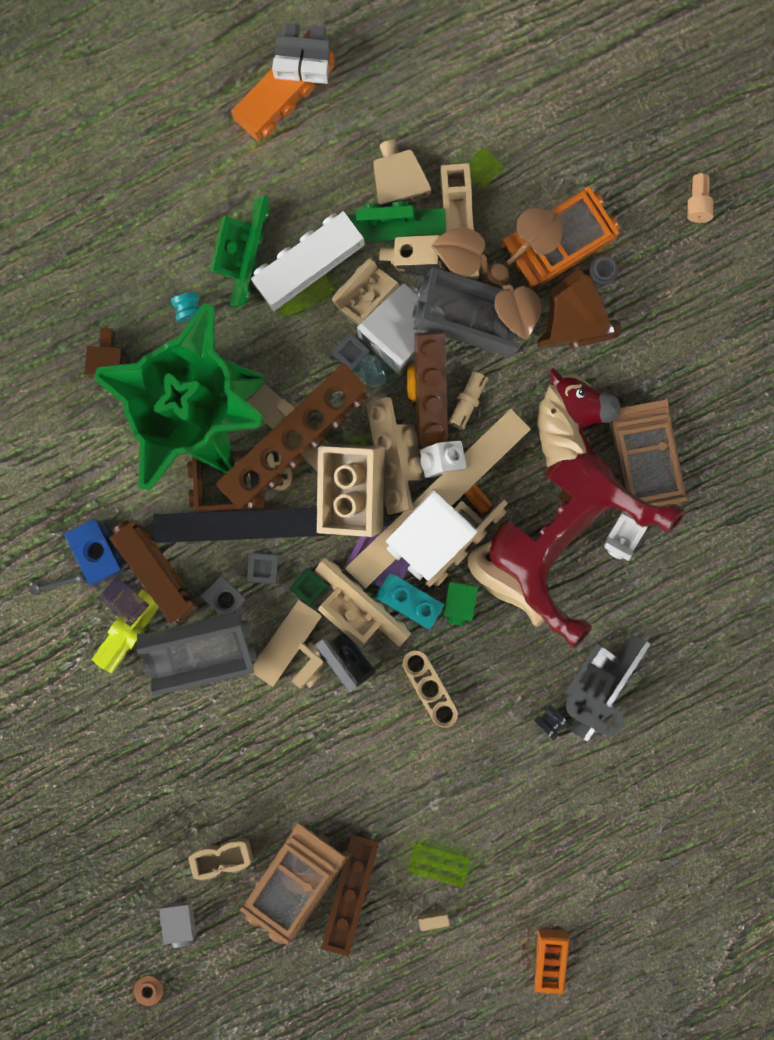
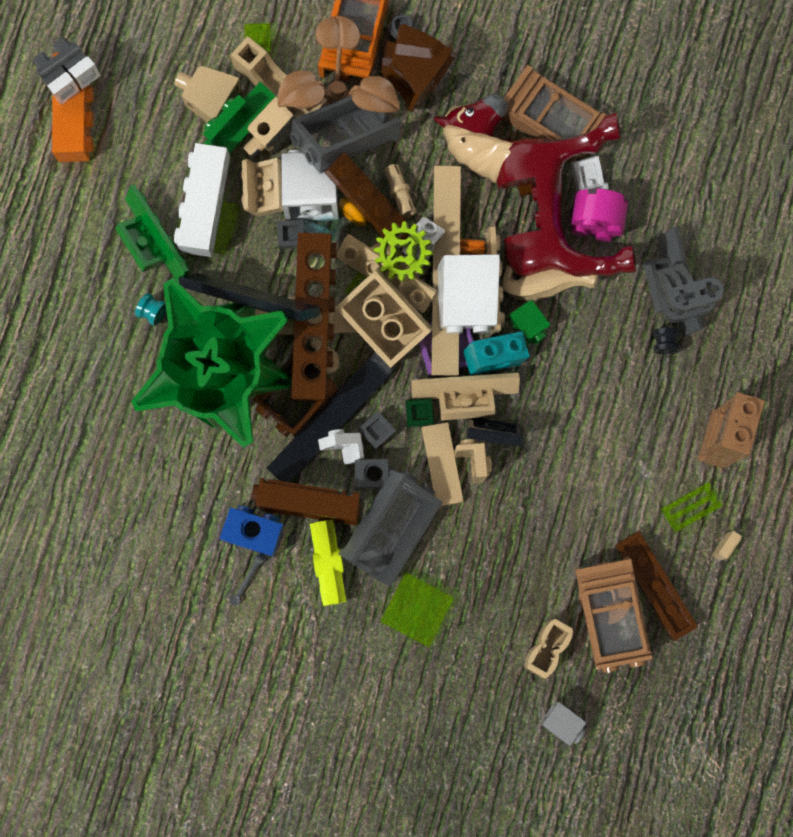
camera: 55 degrees left, 5 degrees down
(104, 354) = (124, 394): reddish brown brick -> none
(123, 601) = (305, 543): slope -> none
(156, 986) = (581, 788): nougat plate -> none
(158, 731) = (417, 609): none -> clear neon green tile
(232, 560) = (349, 443): none -> white bracket
(261, 374) = (249, 296): none -> black tile
(414, 465) = (413, 242): none -> lime gear
(431, 703) = (579, 393): tan beam -> none
(518, 841) = (731, 431): none -> medium nougat door
(599, 573) = (599, 214): none -> dark pink brick

